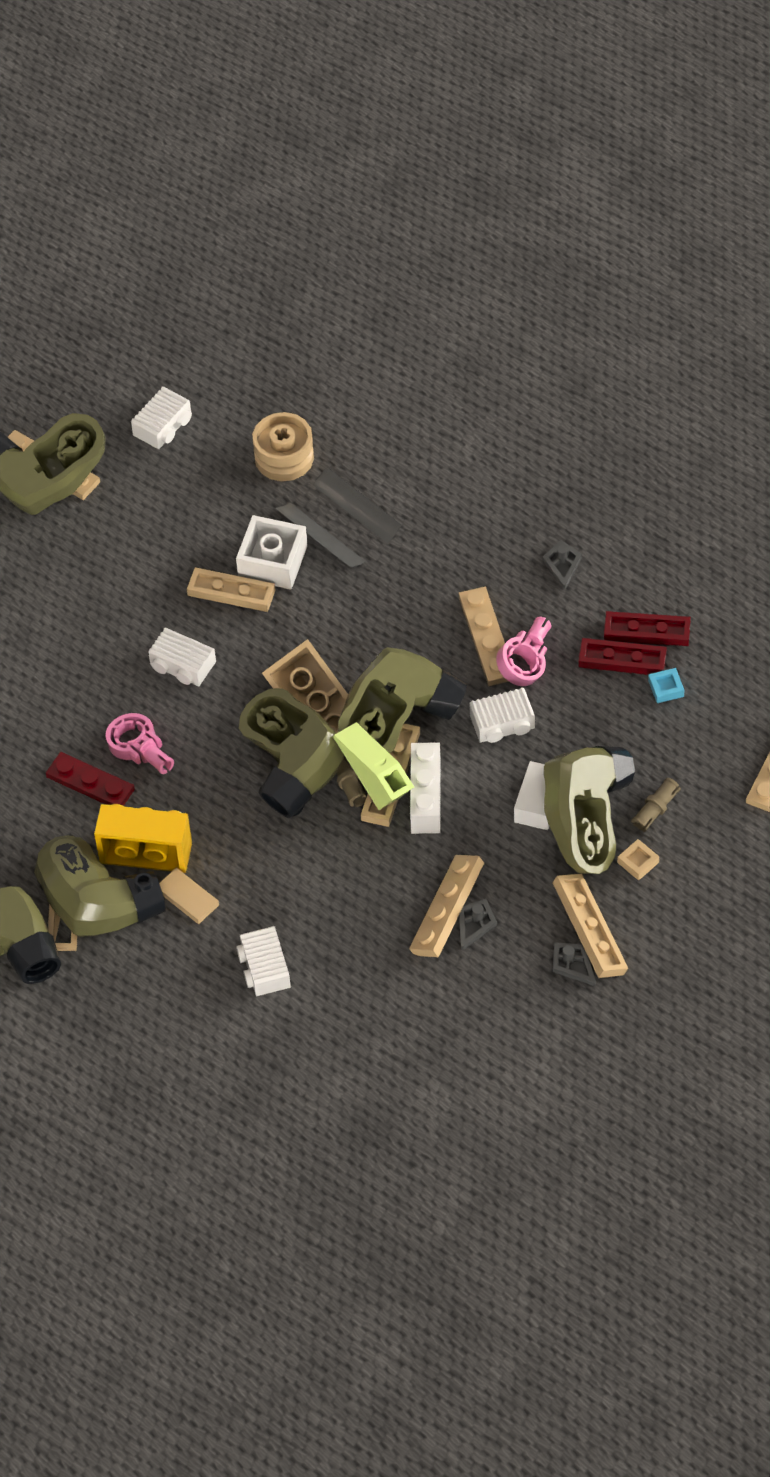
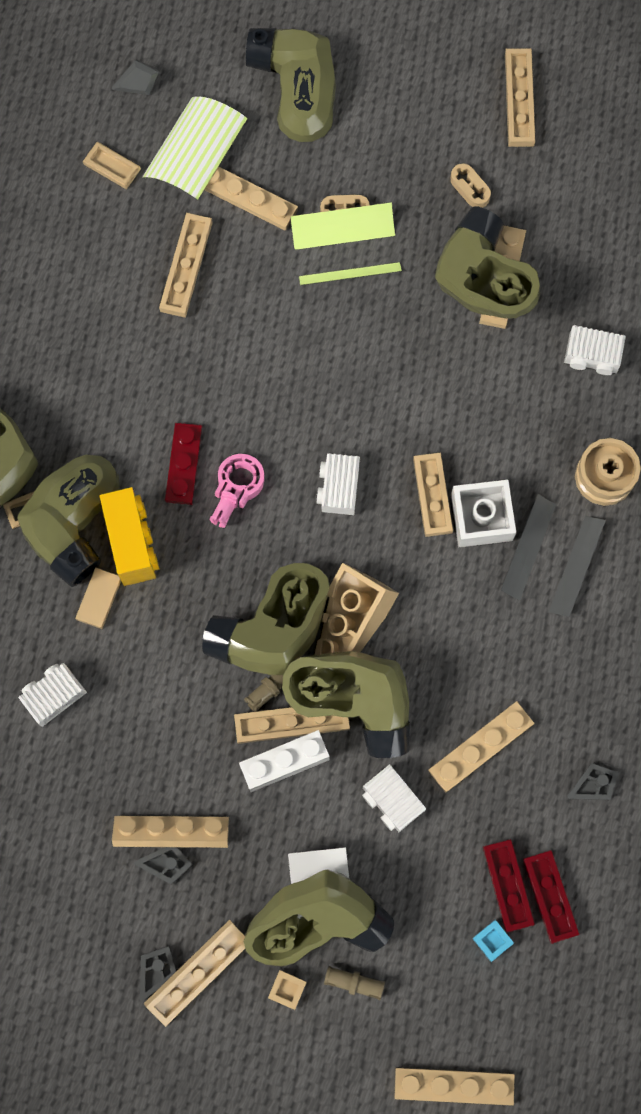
camera: 65 degrees right, 20 degrees up
(373, 765) = (272, 707): yellowish green slope -> none
(527, 649) = (481, 792): bright pink pin -> none

